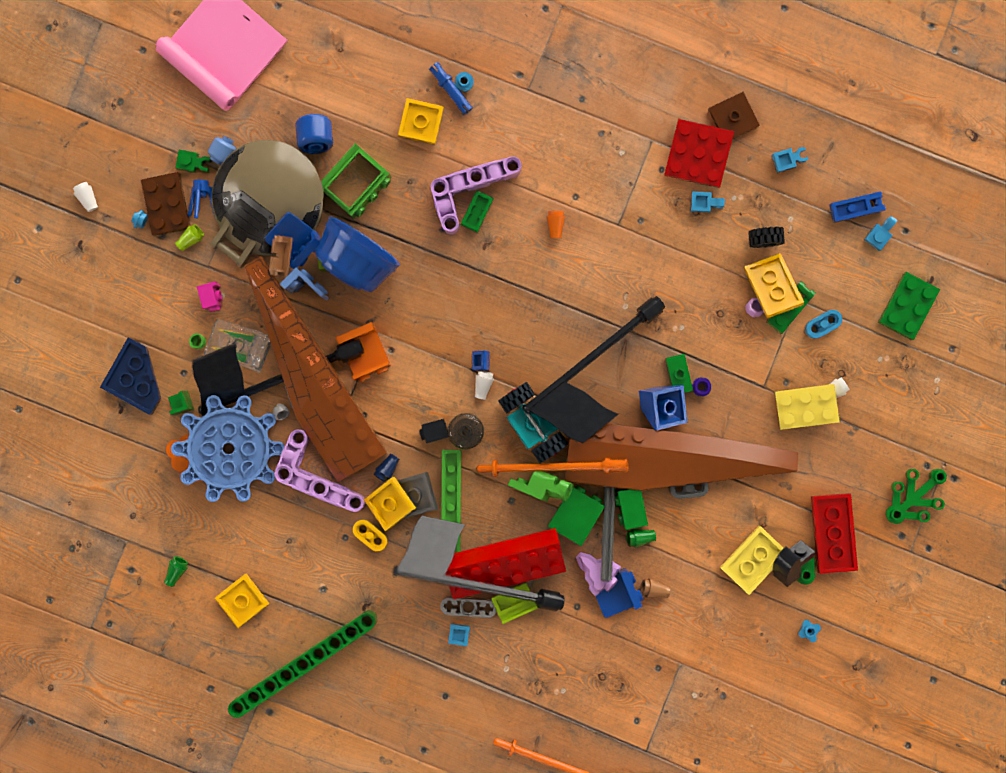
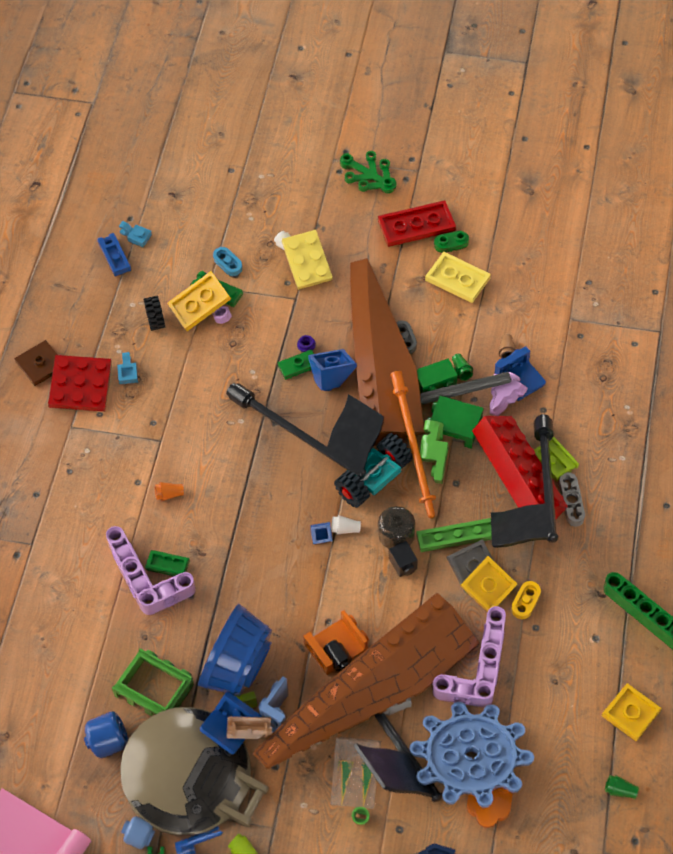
camera: 105 degrees left, 30 degrees down
(180, 403) = (434, 820): green panel -> none
(210, 296) = (307, 811): dark pink brick -> none
(280, 412) = (419, 713): light grey hinge -> none
(386, 468) = (456, 598): dark blue cone -> none
(421, 121) = (78, 634): yellow plate -> none
(446, 82) = (33, 618): blue pin -> none
(459, 634) = (601, 501): dark azure plate -> none
(464, 87) = (30, 607): dark azure plate -> none
(787, 159) = (76, 313): dark azure plate -> none
(789, 562) = (452, 245): black brick -> none
(806, 625) = (509, 228): dark azure plate -> none
(909, 305) = (198, 204): green plate -> none

